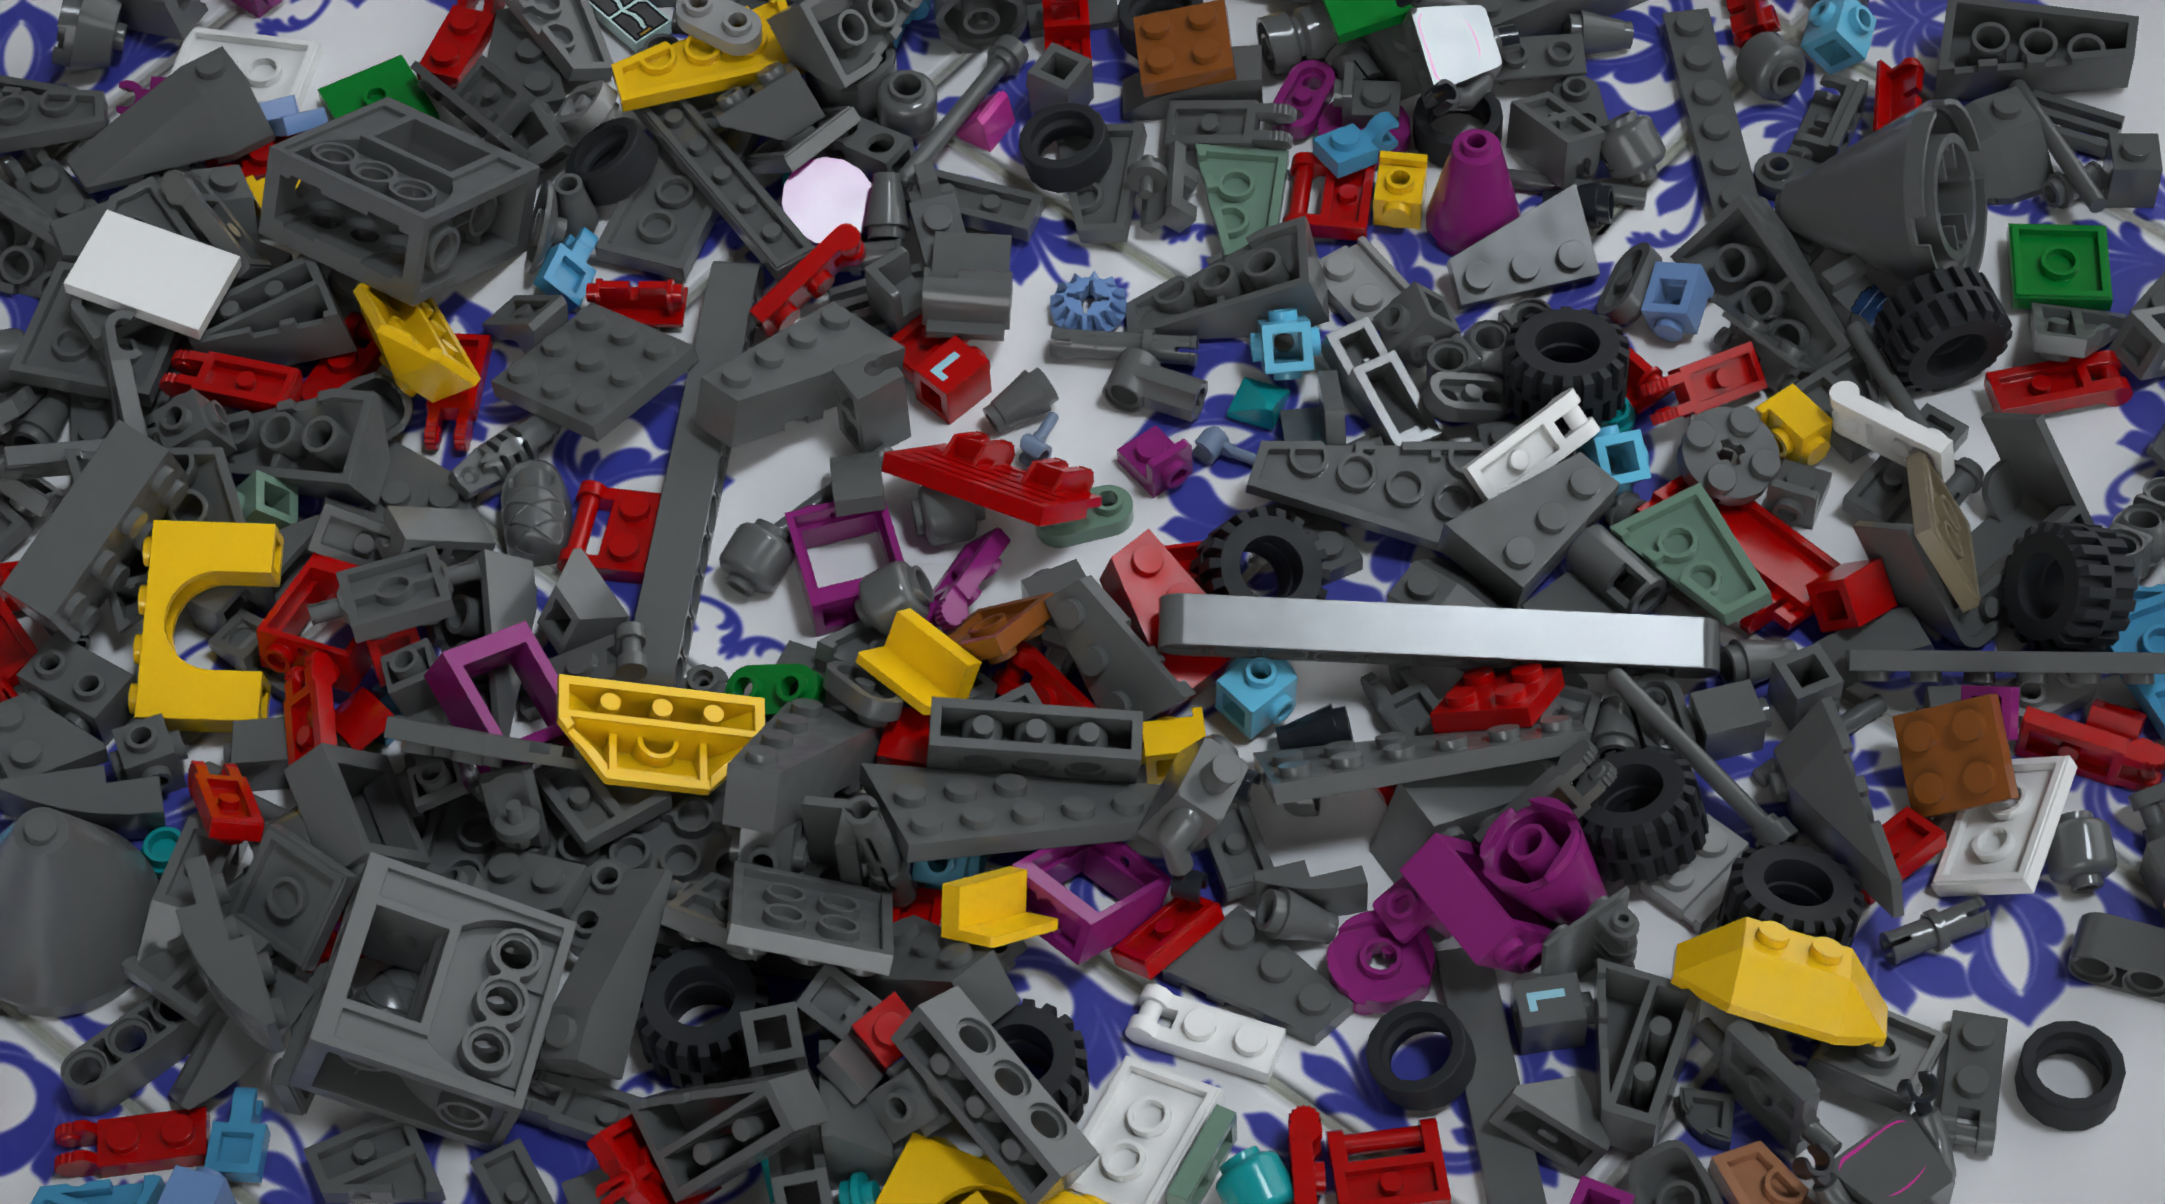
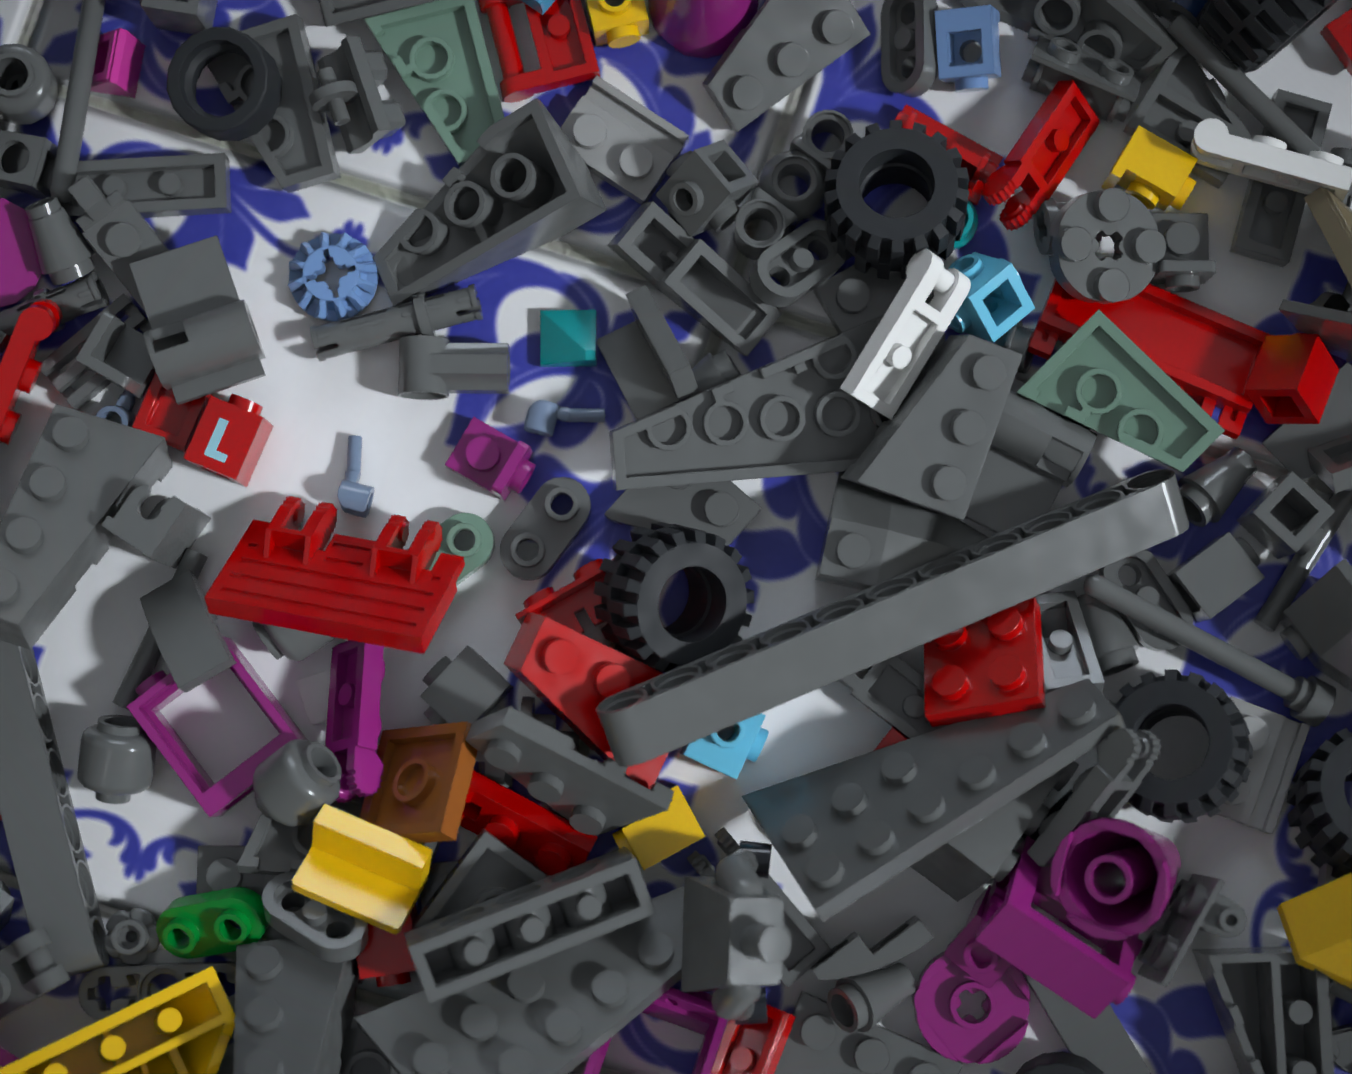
camera: 25 degrees left, 30 degrees up
(1021, 400) = (315, 439): dark grey cone -> none
(1180, 517) = (549, 530): none -> dark grey plate
(1290, 362) = (575, 266): medium azure brick -> none
(1316, 729) = (801, 750): black cone -> none
(1550, 1013) = (1168, 1012): dark grey brick -> none

